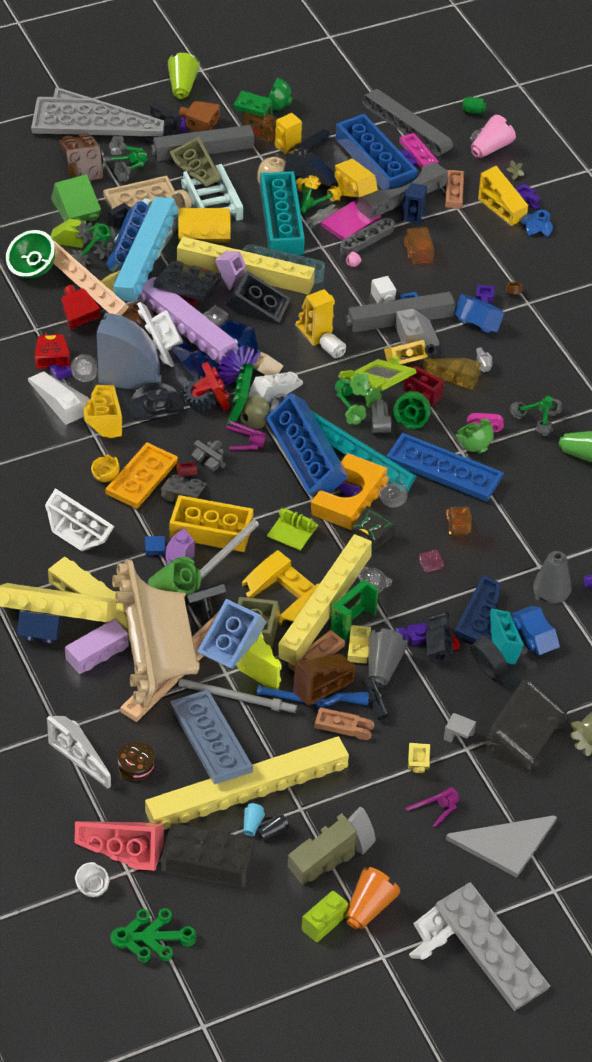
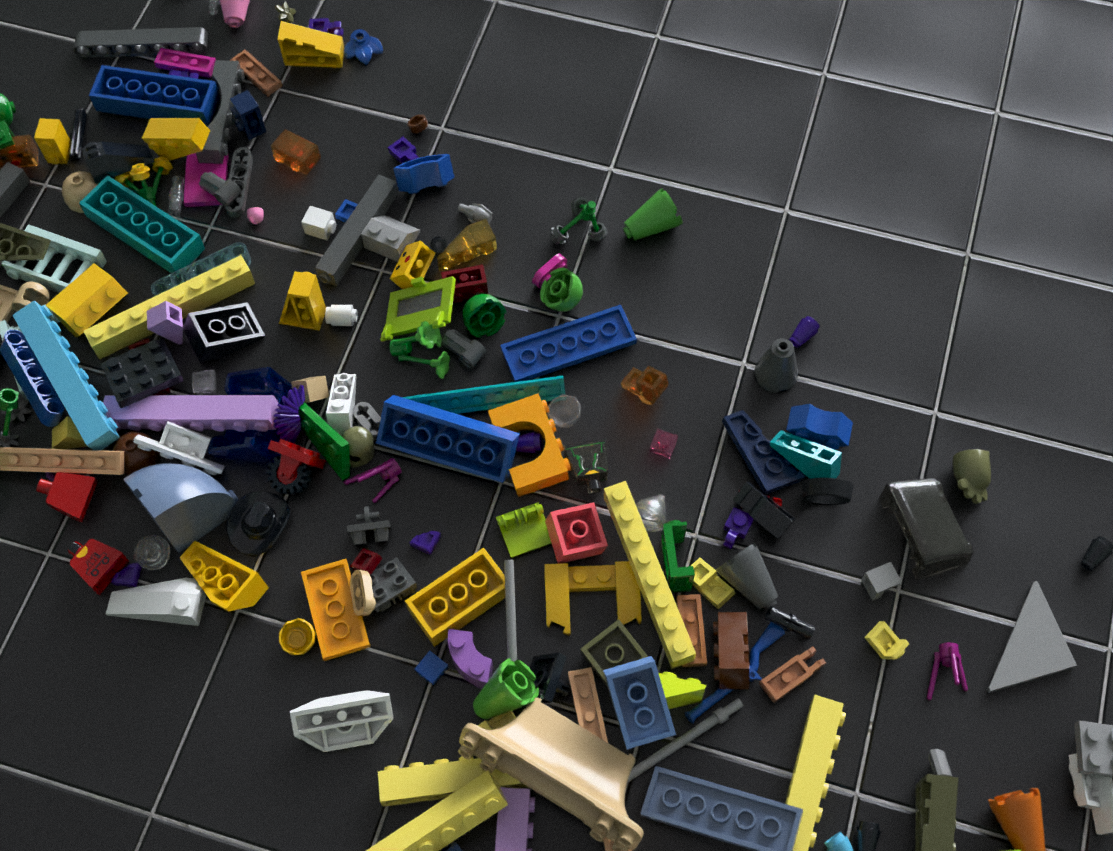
camera: 45 degrees left, 15 degrees up
(168, 472) = (362, 593): none -> tan plate
(232, 490) = (426, 542): none -> dark purple tile
(315, 551) = (576, 533): none -> coral brick
(349, 229) = (223, 190): none -> dark grey piece

